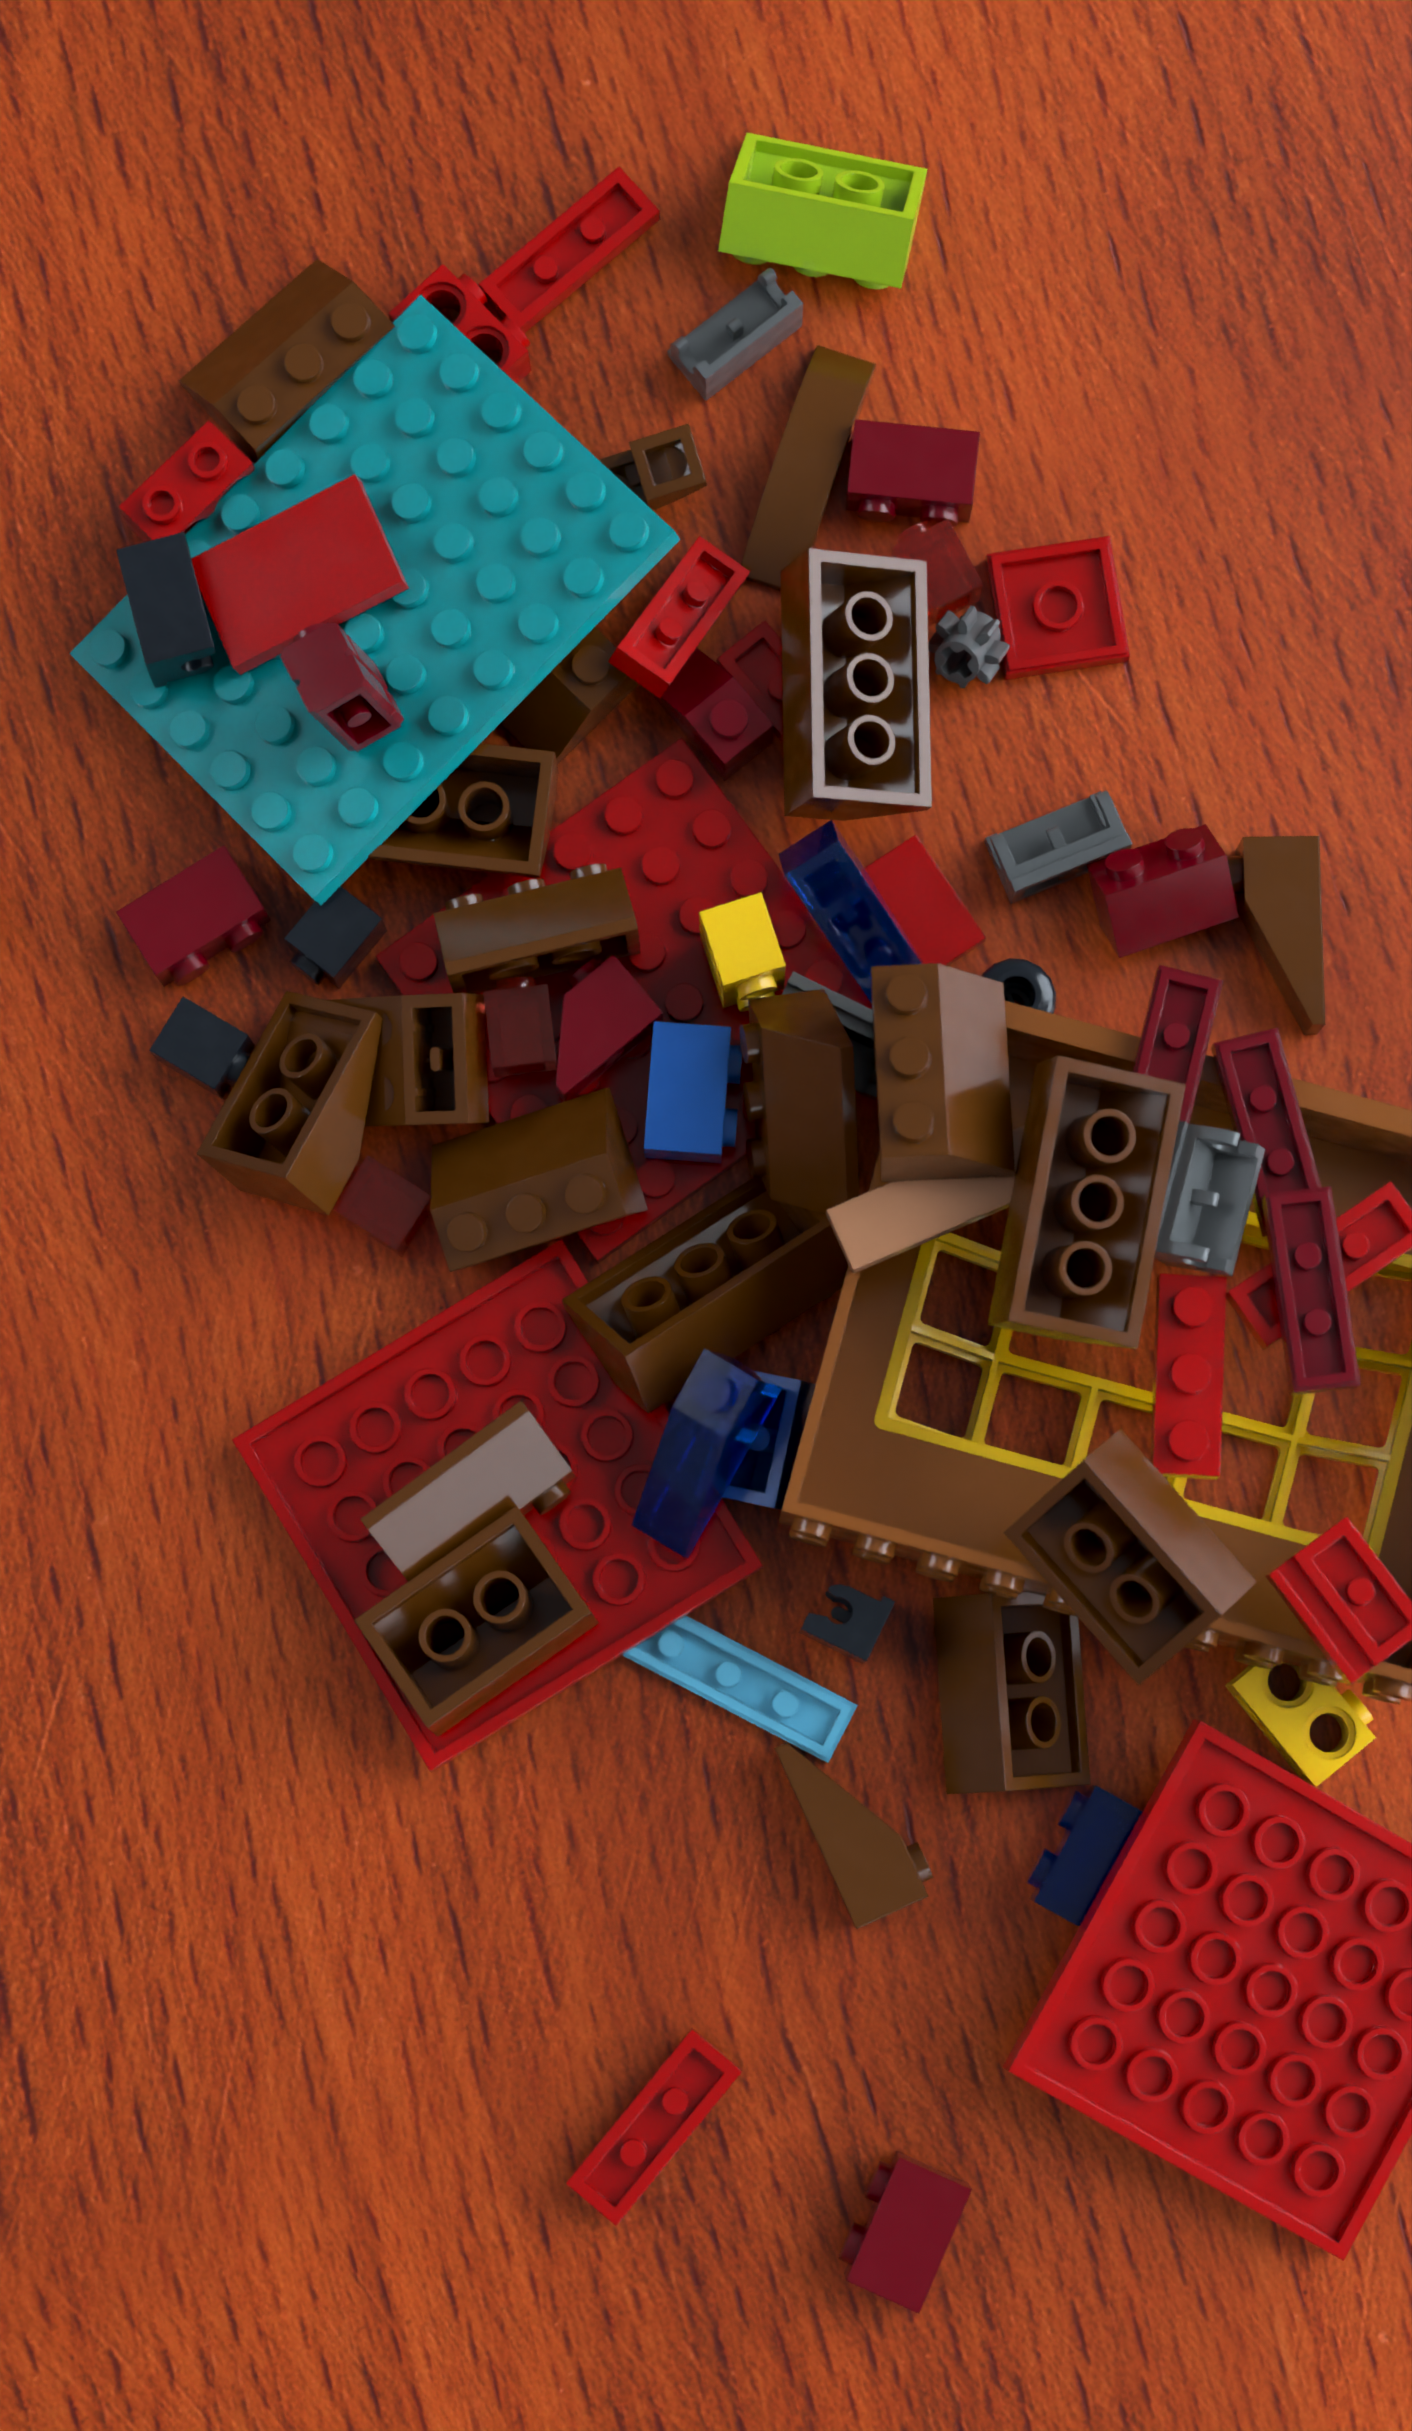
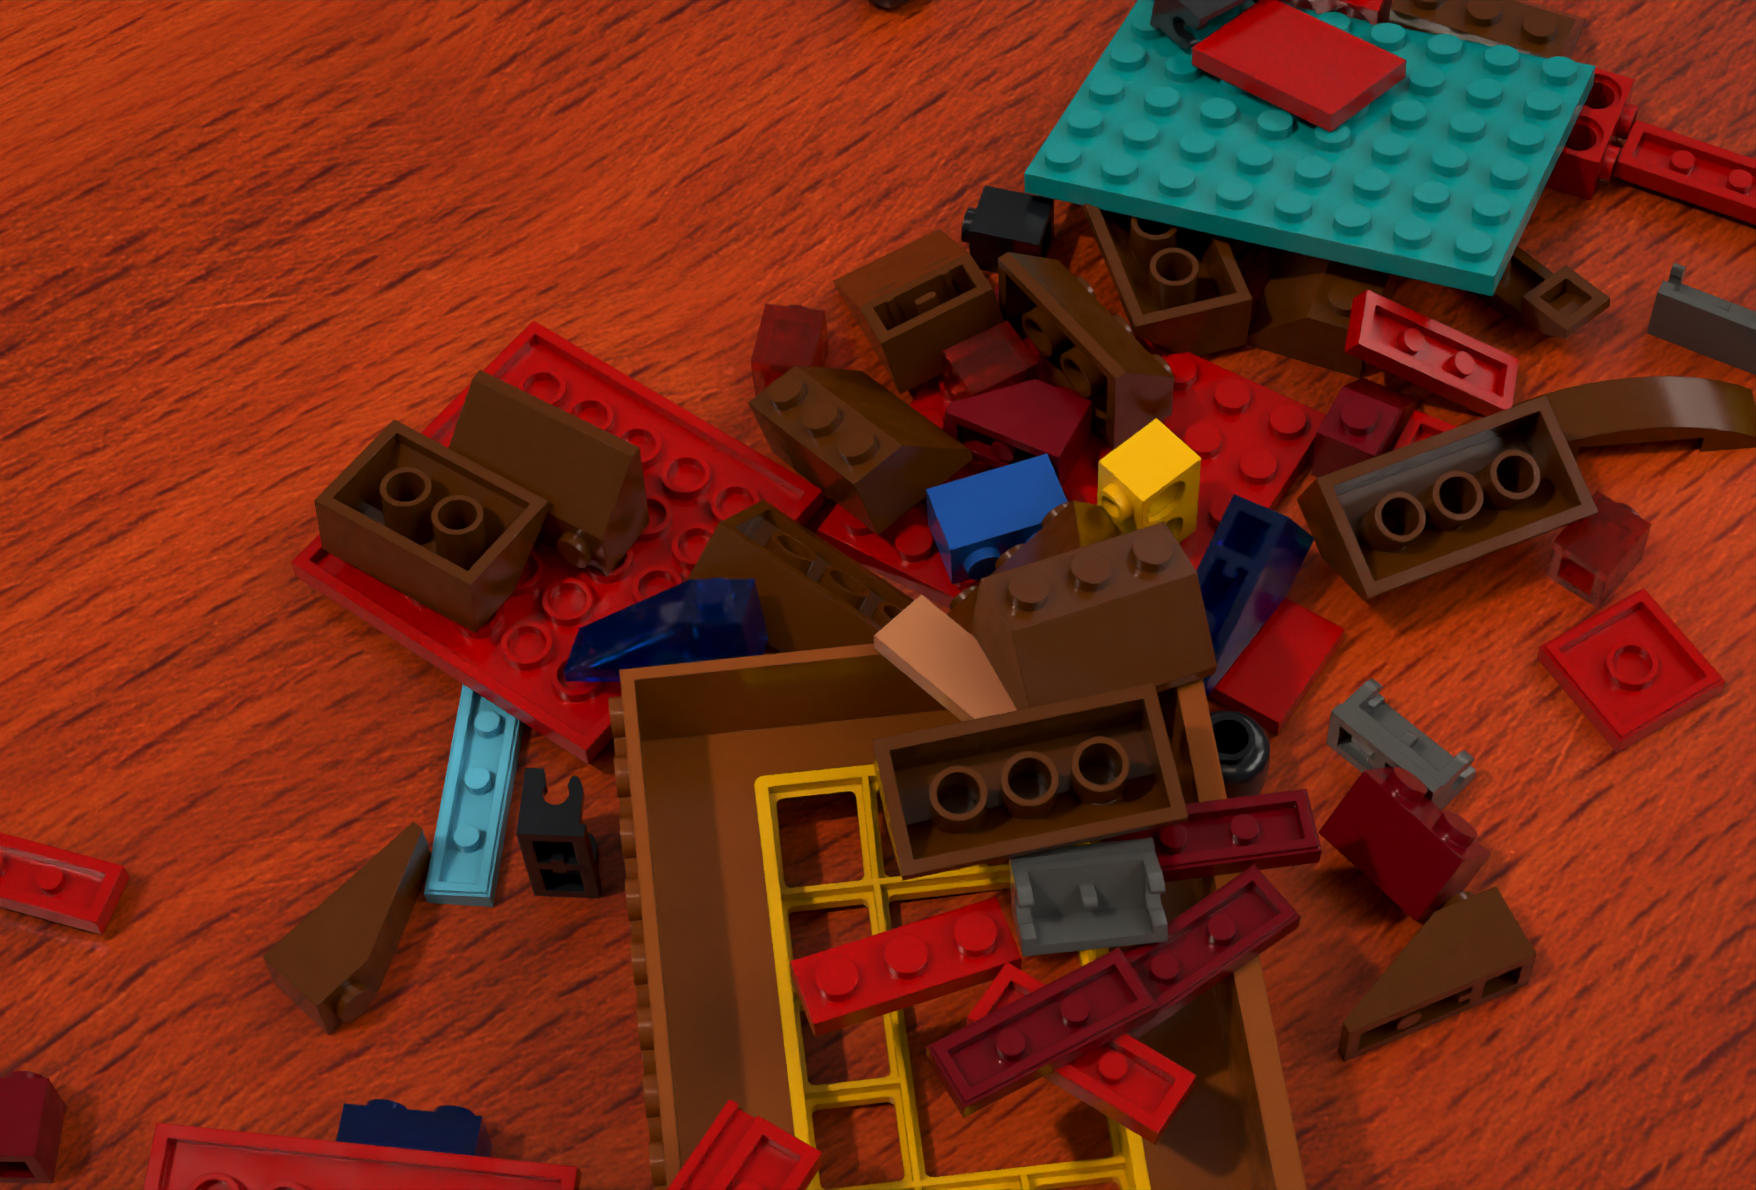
camera: 70 degrees right, 25 degrees down
(195, 918) = (973, 132): dark red brick -> none
(203, 1047) = (865, 180): black brick -> none
(299, 1104) = (834, 245): reddish brown slope -> none
(341, 686) = (1208, 90): dark red brick -> none
(912, 472) = (1683, 494): dark red brick -> none
(967, 647) = (1544, 597): dark grey gear -> none
(1009, 1694) = (545, 1023): reddish brown slope -> none
(1130, 1557) = (697, 968): reddish brown slope -> none

